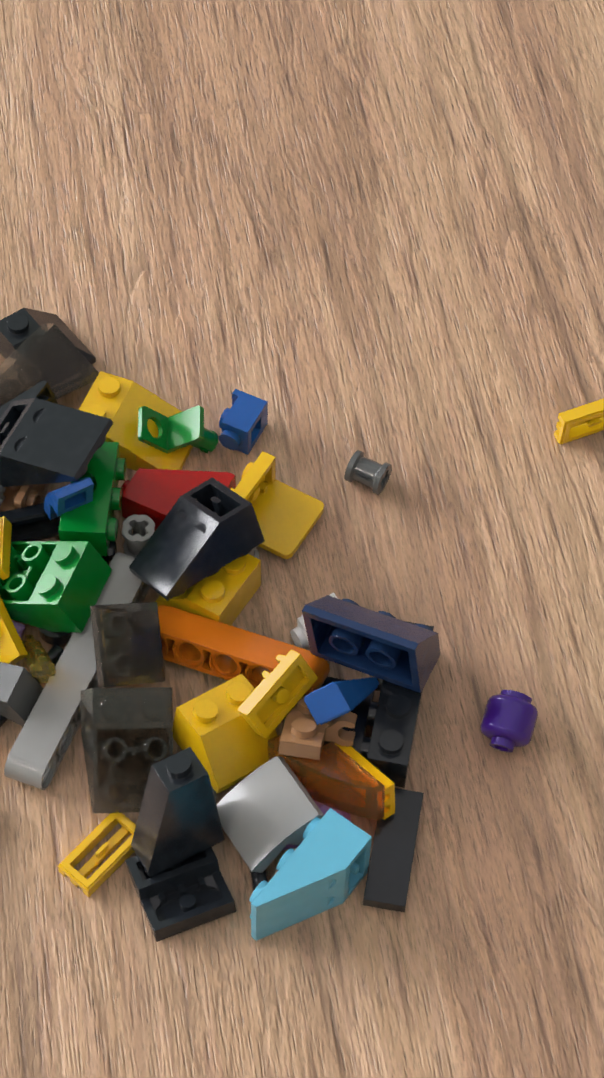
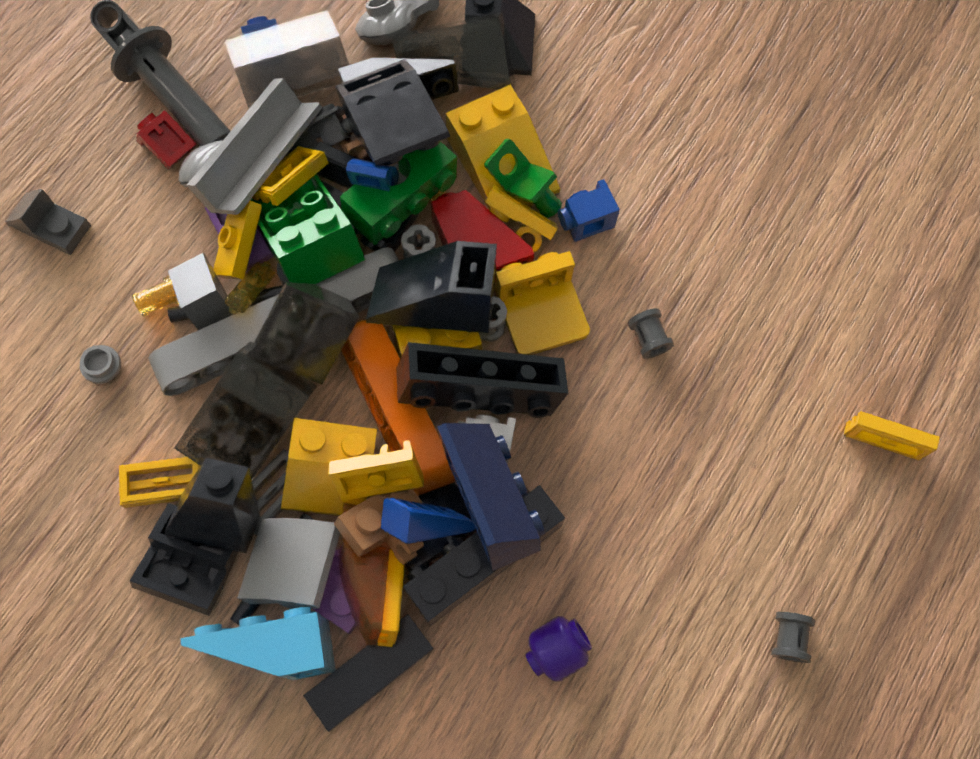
camera: 40 degrees right, 15 degrees up
(183, 458) = (507, 207): none -> yellow plate
(284, 583) = (480, 380): none -> black brick

